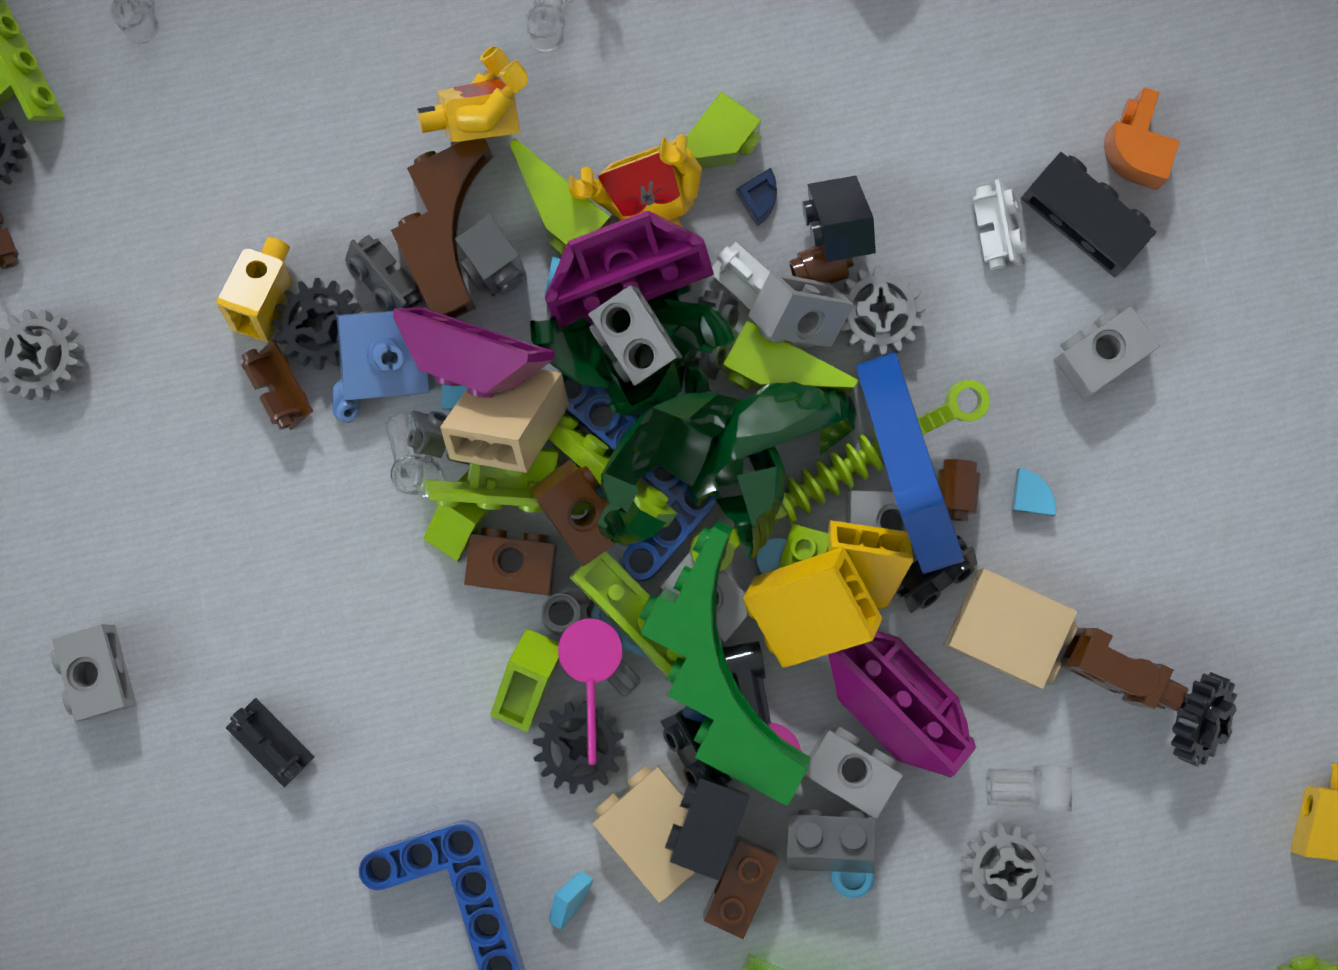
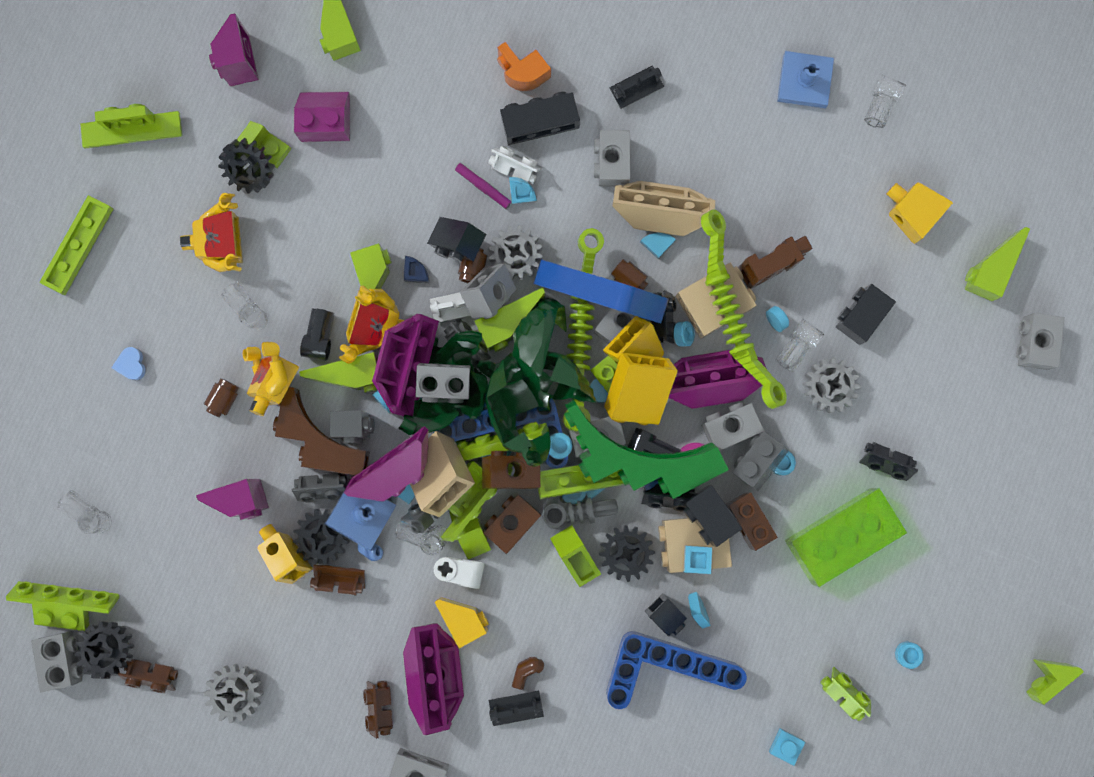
camera: 55 degrees left, 0 degrees up
(131, 567) = (378, 719): none -> reddish brown hinge
(234, 602) = (433, 677): none -> magenta wedge
(292, 181) = (239, 499): none -> magenta slope
(331, 719) = (526, 668): none -> reddish brown arm
(336, 588) = (462, 620): none -> yellow slope
(400, 546) = (465, 572): none -> white piece
(409, 63) = (221, 398): none -> reddish brown brick
(531, 859) = (666, 615): none -> black slope
(571, 133) = (316, 341): none -> black piece
(590, 653) = (585, 515): dark pink piece -> none
(635, 849) = (697, 559): none -> medium azure plate
(659, 553) = (560, 445): none -> medium azure tile
(933, 617) = (684, 334): none -> medium azure tile
(940, 204) = (483, 186): none -> magenta piece
(970, 259) = (521, 190): none -> medium azure tile
(1041, 606) = (743, 352): none -> lime piece
(1046, 731) = (777, 318): none -> medium azure tile
(1086, 466) = (661, 207): none -> tan wedge
(1140, 849) = (865, 313): none -> black brick
(1204, 719) = (824, 238): black gear -> none
(1230, 315) = (637, 86): none -> black hinge

